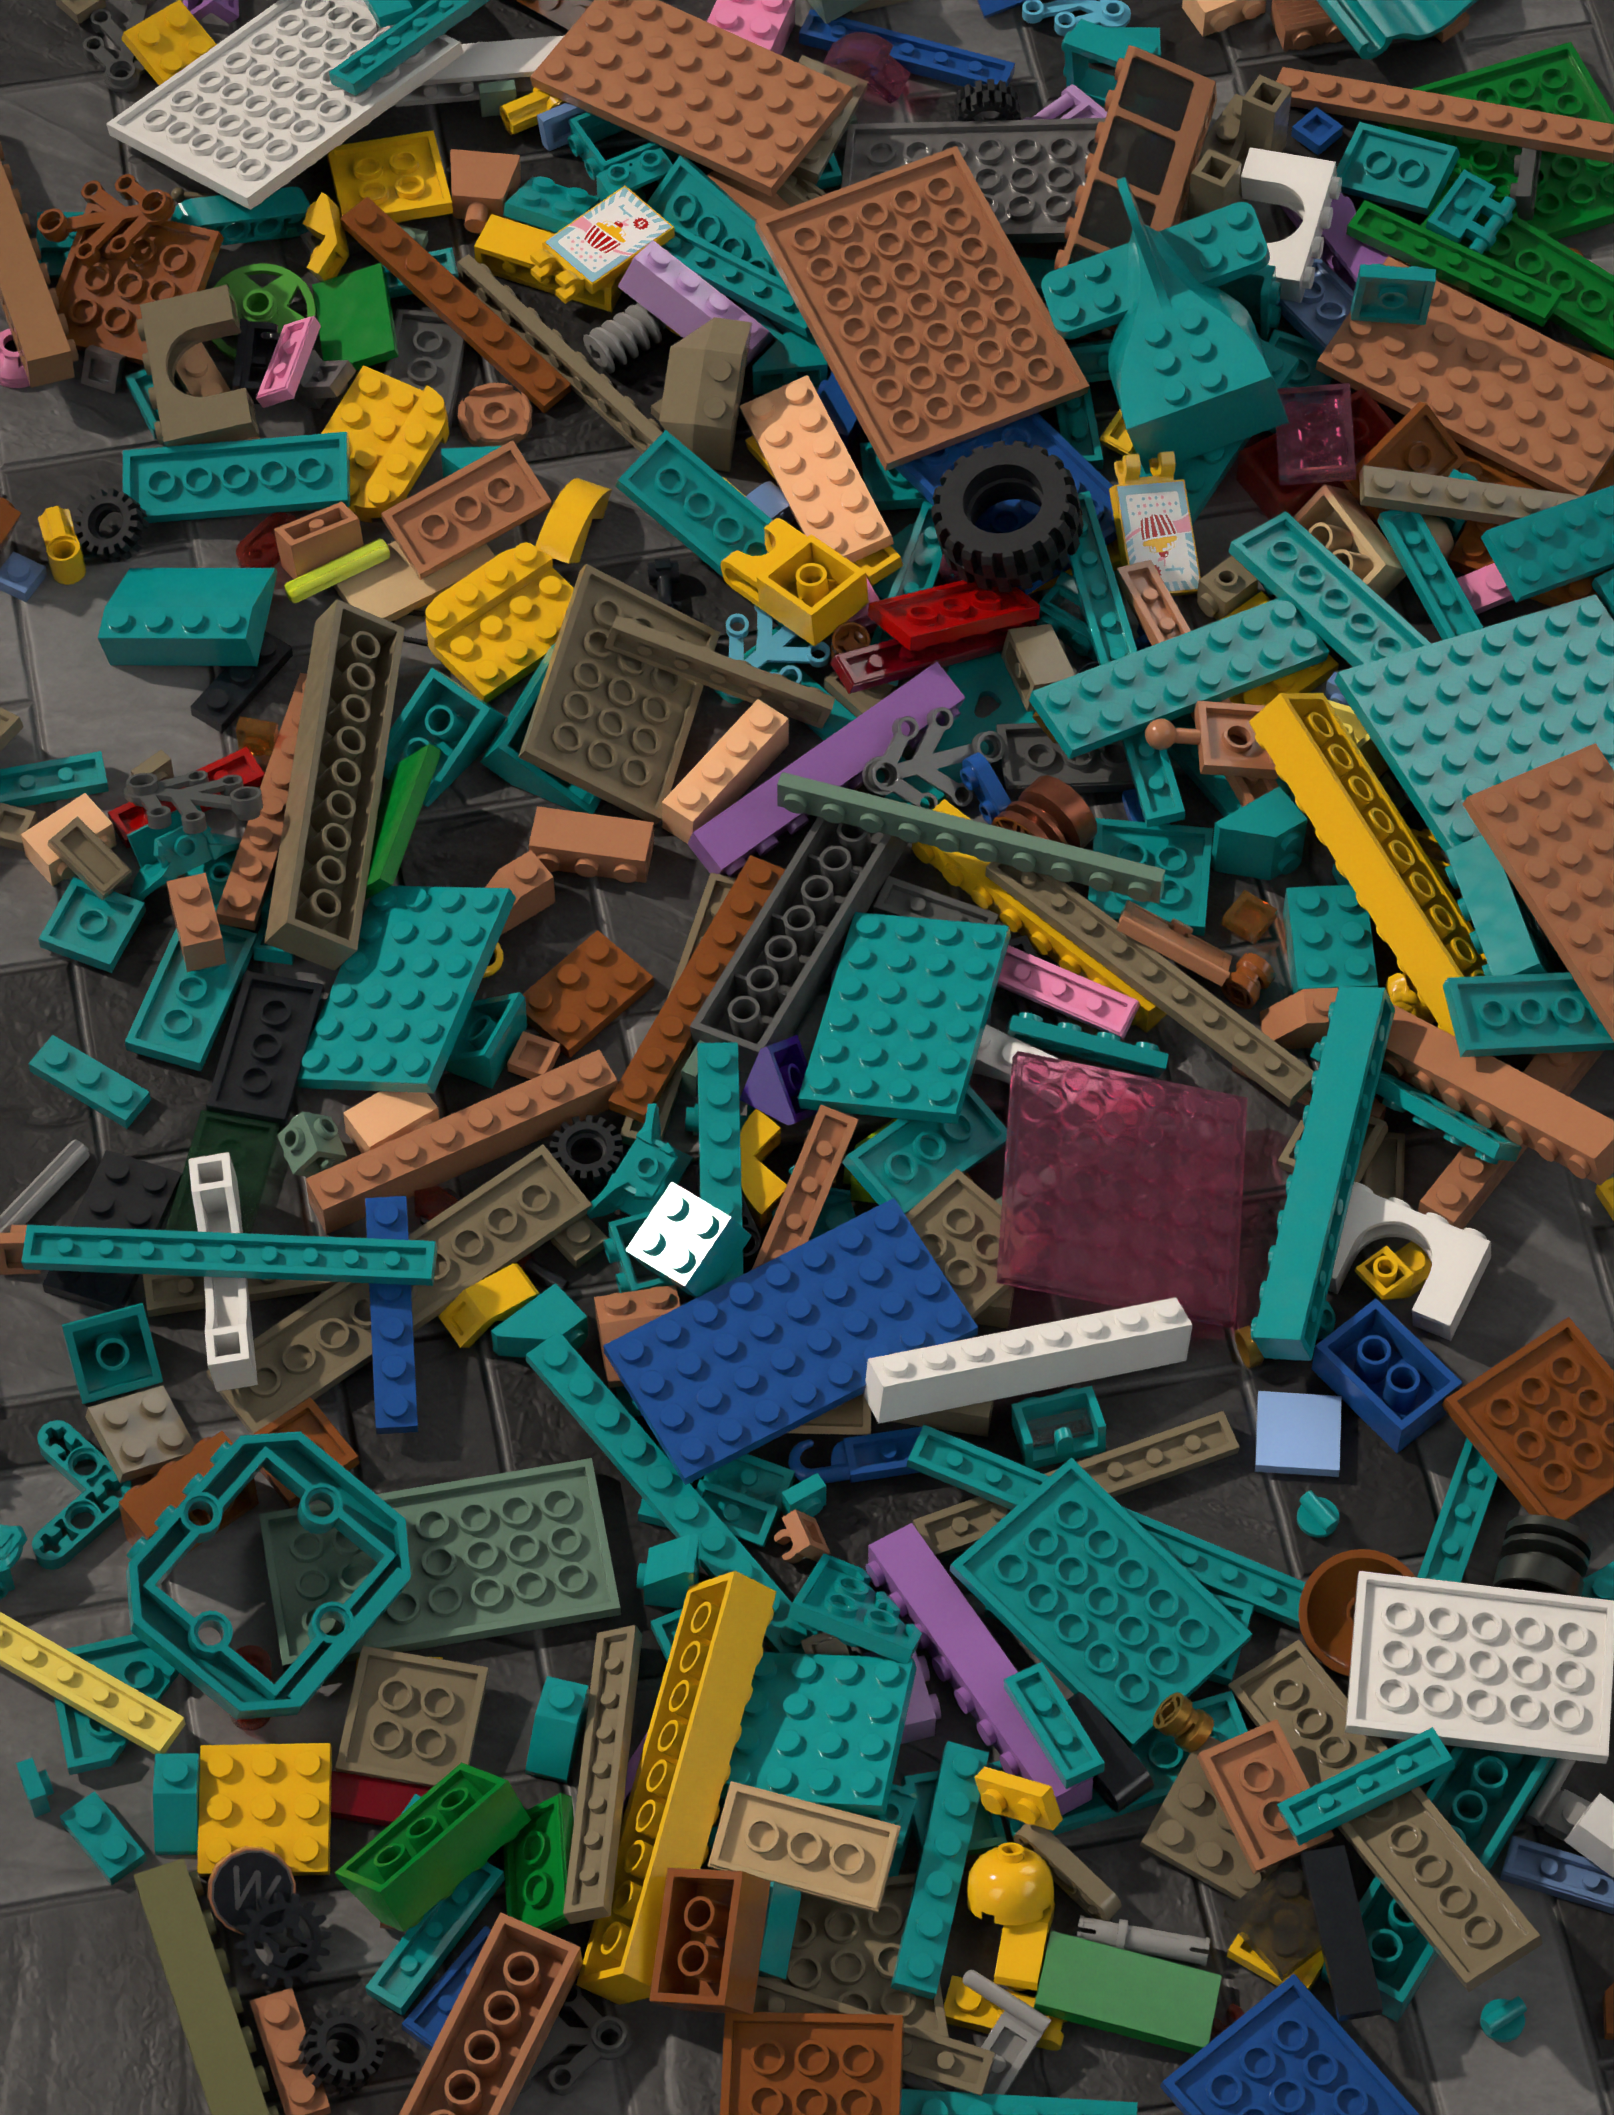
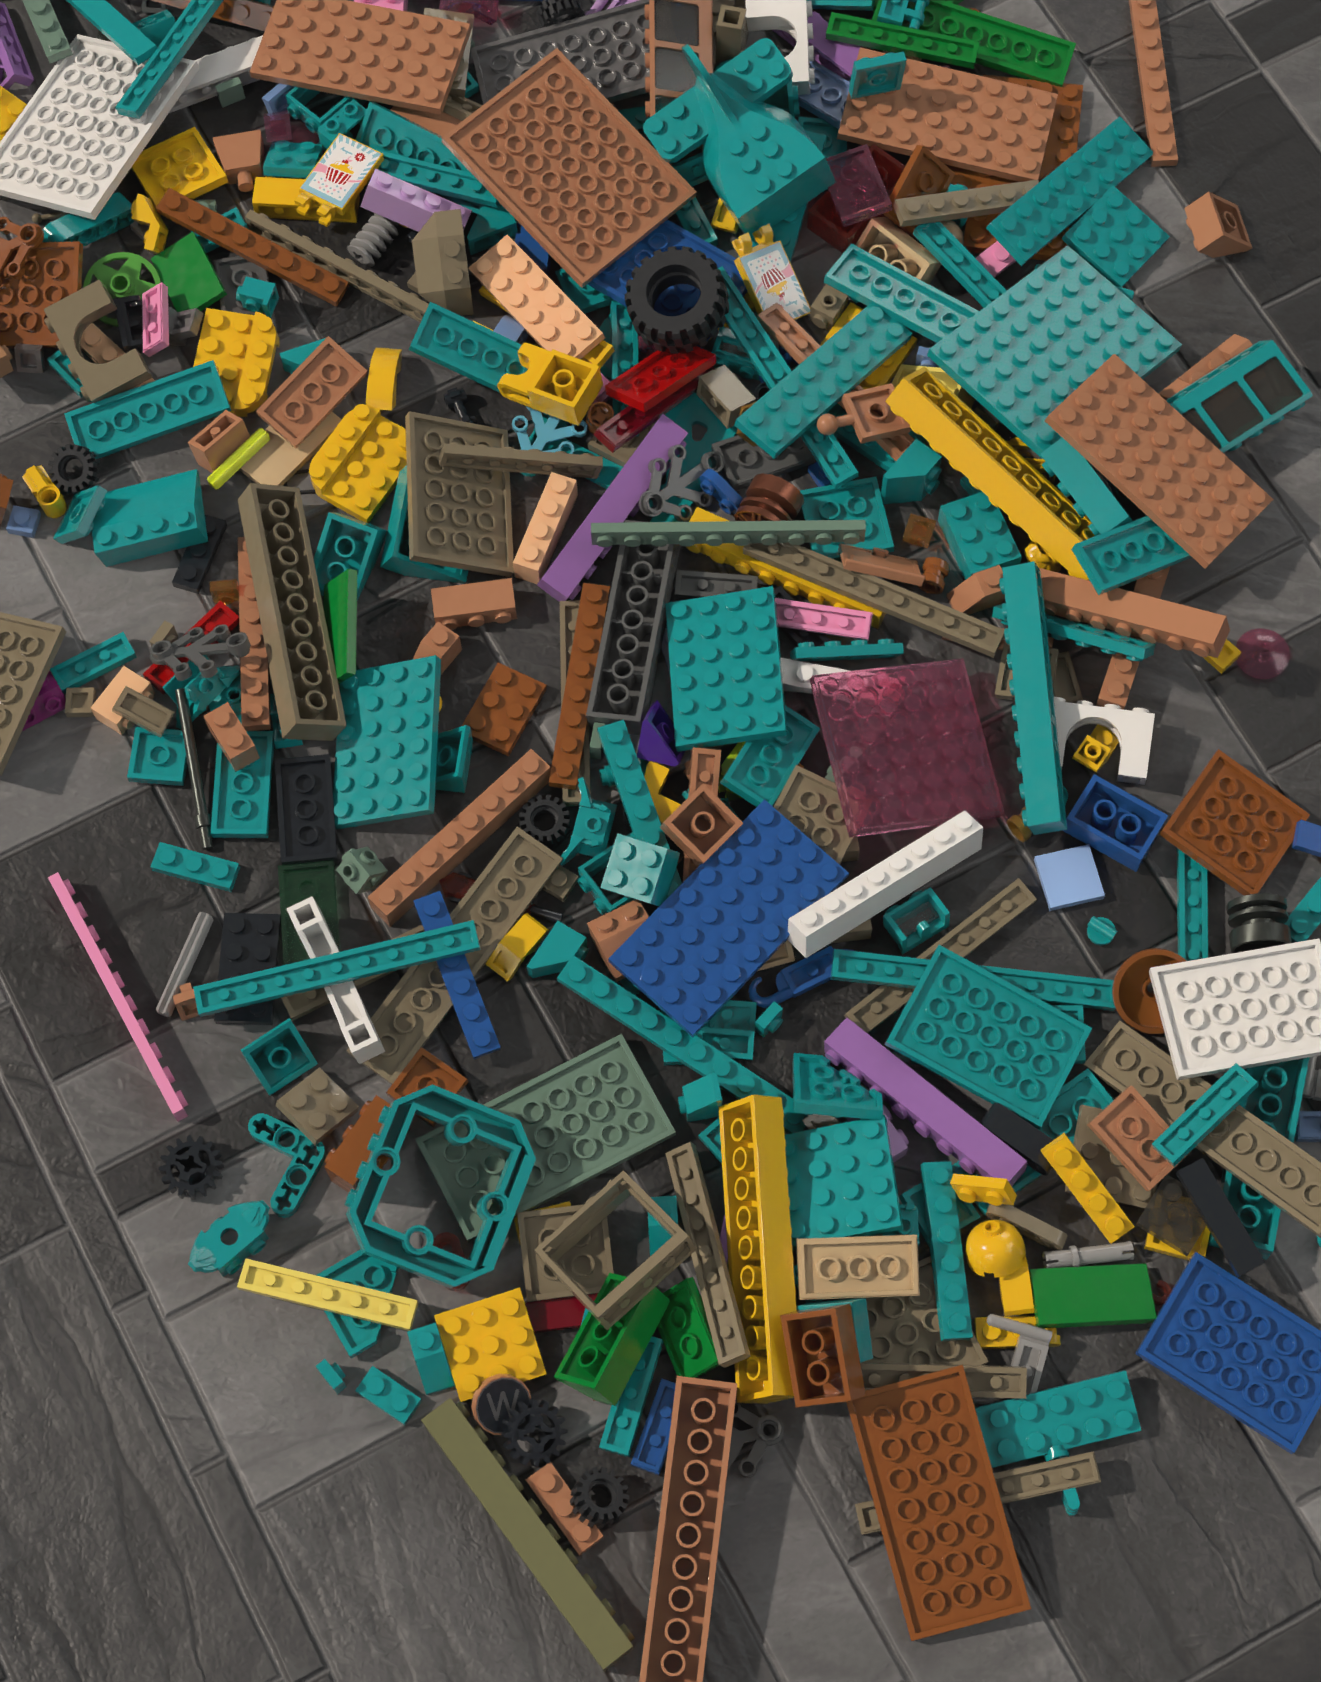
camera: 15 degrees left, 10 degrees up
(92, 590) = (80, 514): none -> teal plate
(122, 1021) = (203, 819): none -> pearl dark grey bar
(262, 543) = (181, 452): clear red plate -> none
(388, 1117) = (407, 837): light nougat brick -> none
(439, 368) = (258, 296): none -> teal brick
(494, 415) = (304, 318): nougat tile -> none
(497, 1767) = (640, 1281): none -> dark tan window
(523, 112) = (251, 95): yellow piece -> none
(533, 1056) = (486, 764): nougat plate -> none
(545, 157) = (277, 126): none -> clear pink brick
(793, 1204) = (701, 825): none -> nougat brick
(805, 1536) = (778, 1044): nougat tile -> none
(1054, 1725) = (991, 1133): teal plate -> none
(1169, 1844) = (1087, 1188): none -> yellow plate
(1182, 1721) = (1070, 1103): pearl gold wheel -> none

